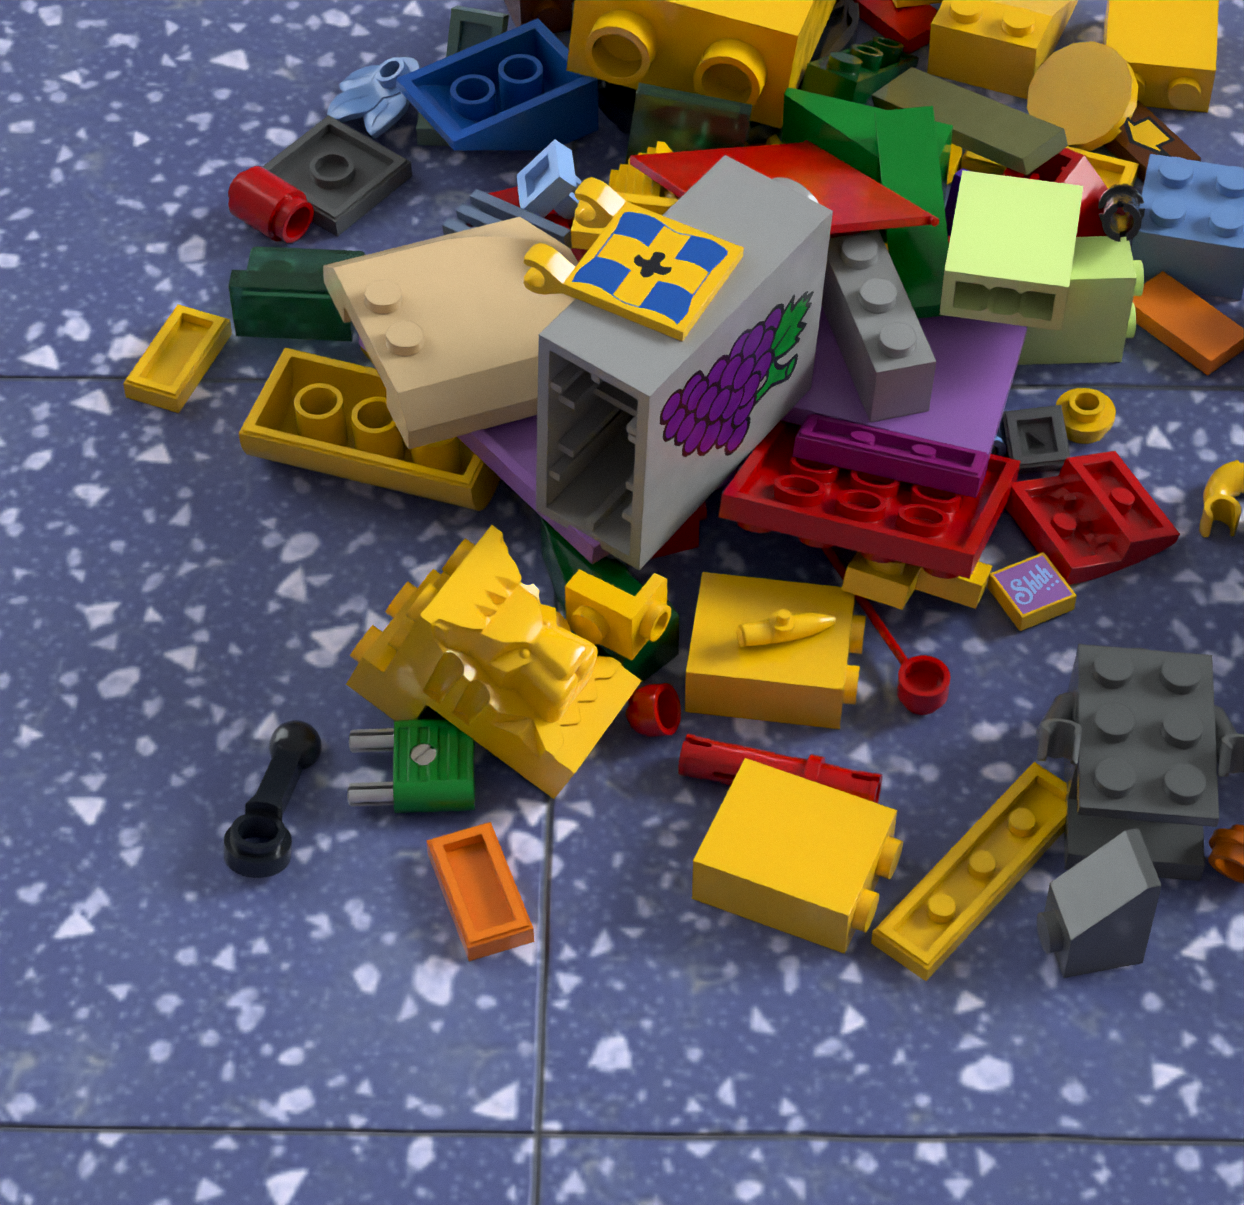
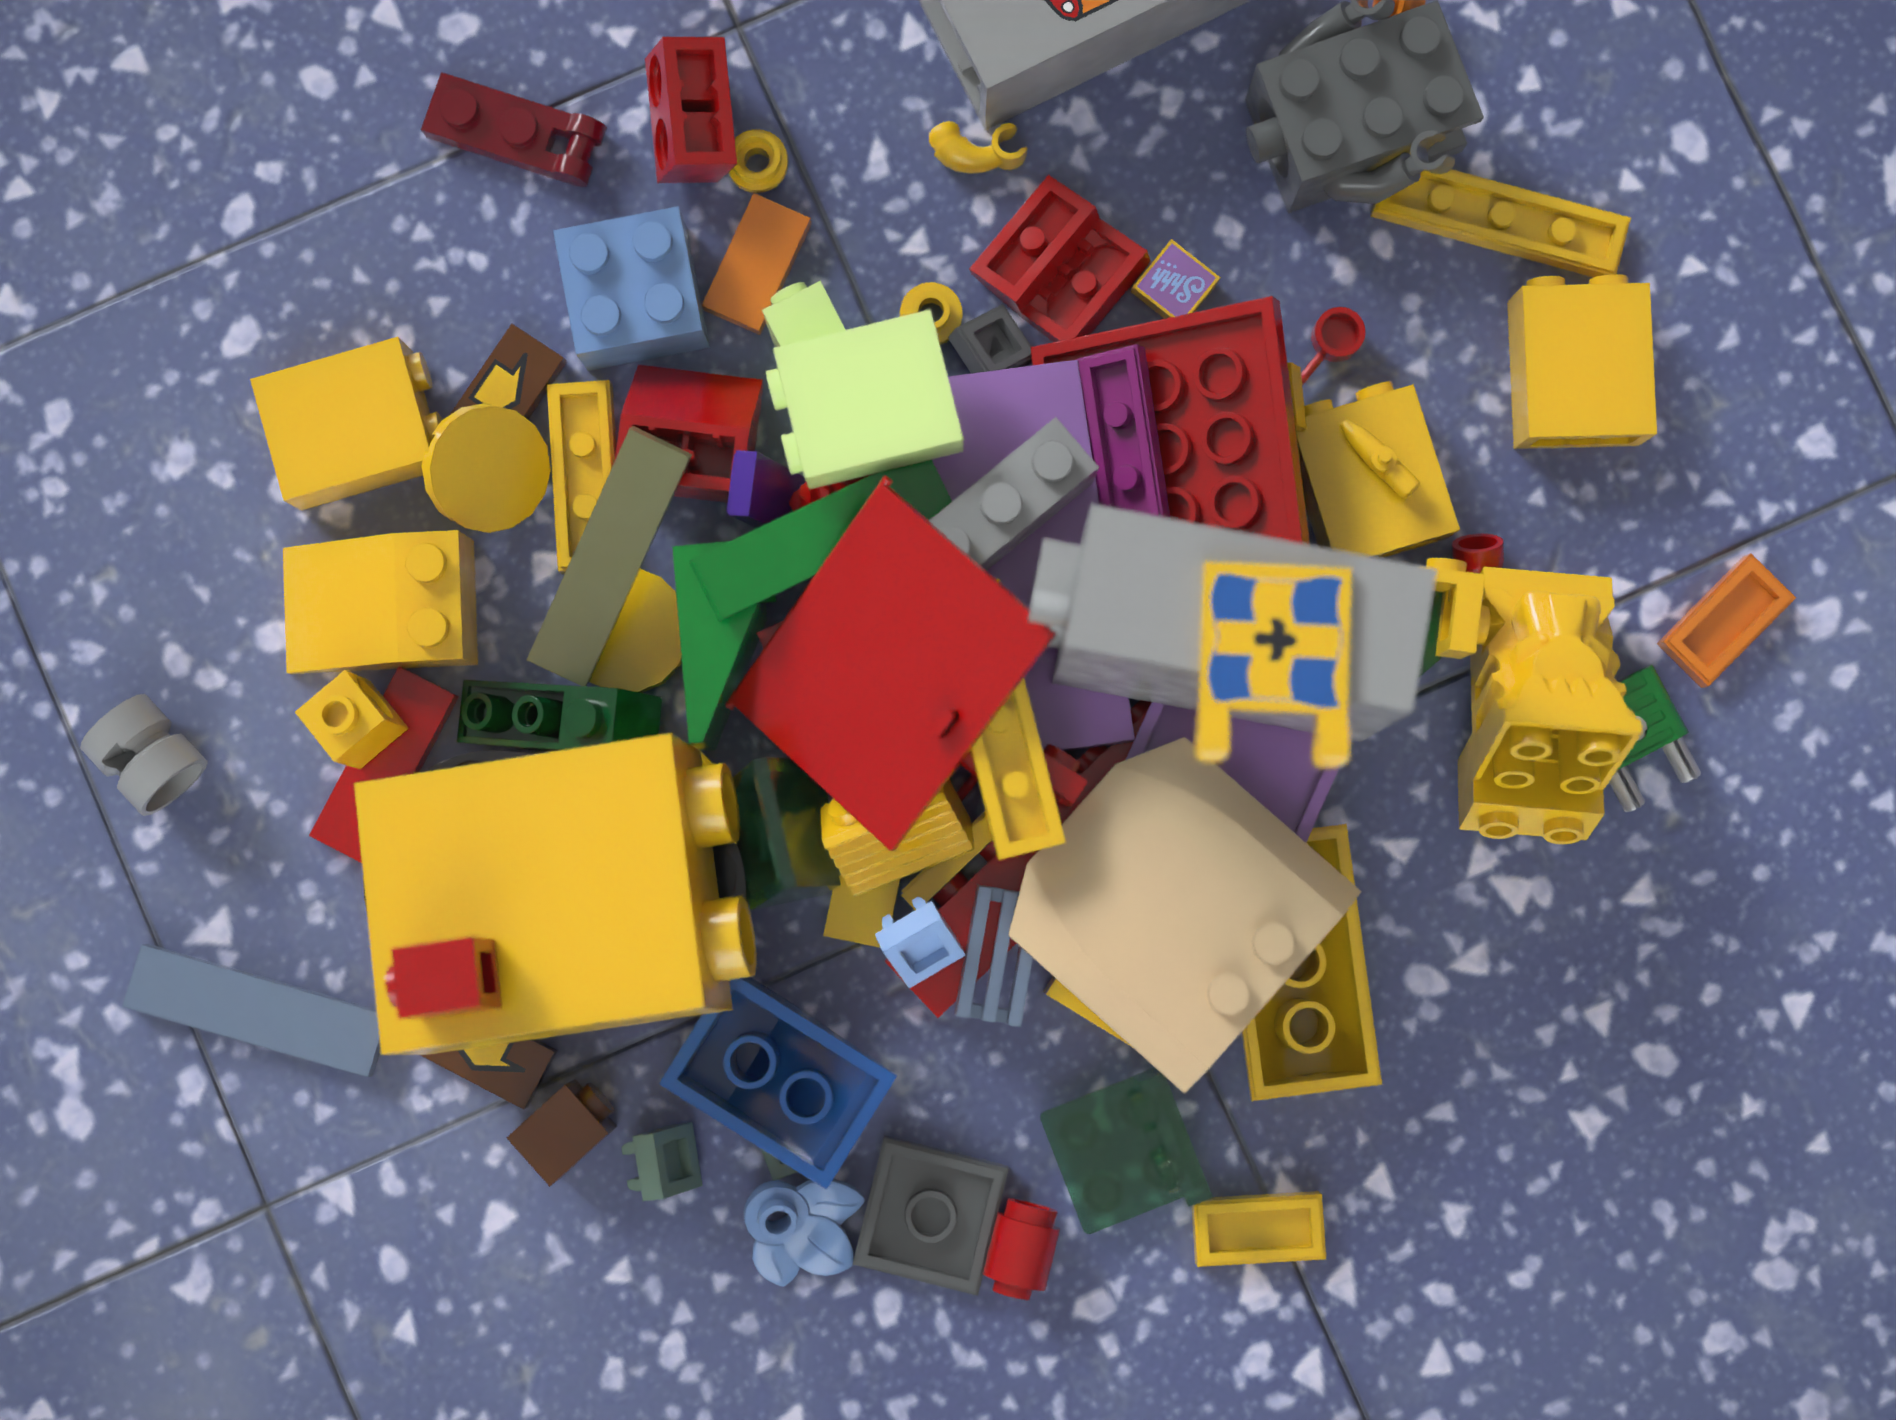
camera: 115 degrees left, 35 degrees up
(292, 748) = (1657, 858): black piece -> none
(721, 762) = (1496, 416): red pin -> none
(1102, 908) = (1535, 86): dark grey slope -> none
(1114, 224) = (695, 344): black pin -> none

